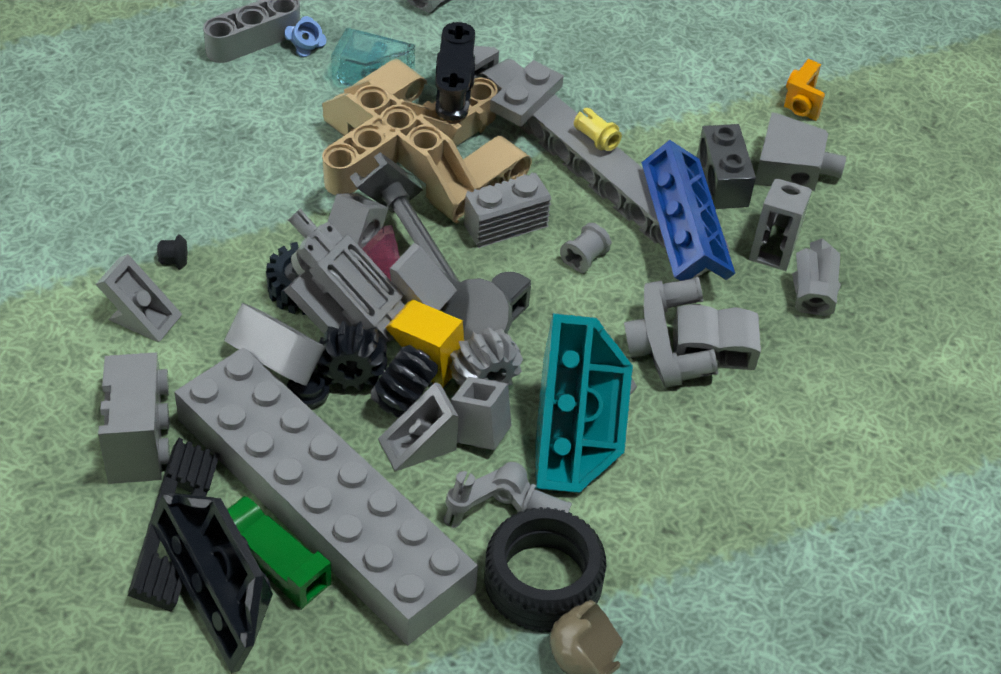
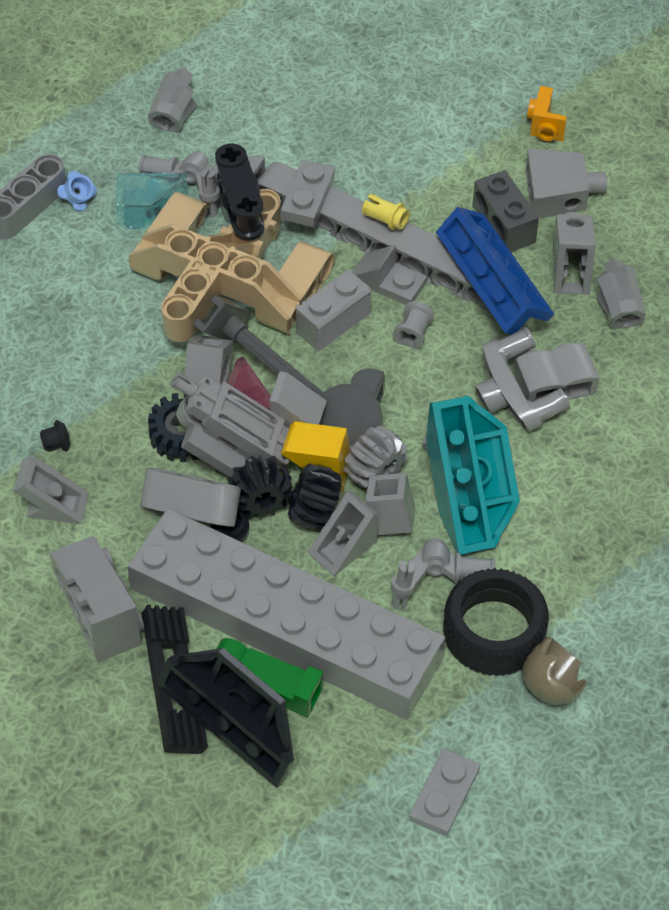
camera: 15 degrees left, 5 degrees up
(426, 50) = (197, 170): none -> light grey pin
(579, 197) = (389, 278): none -> light grey slope

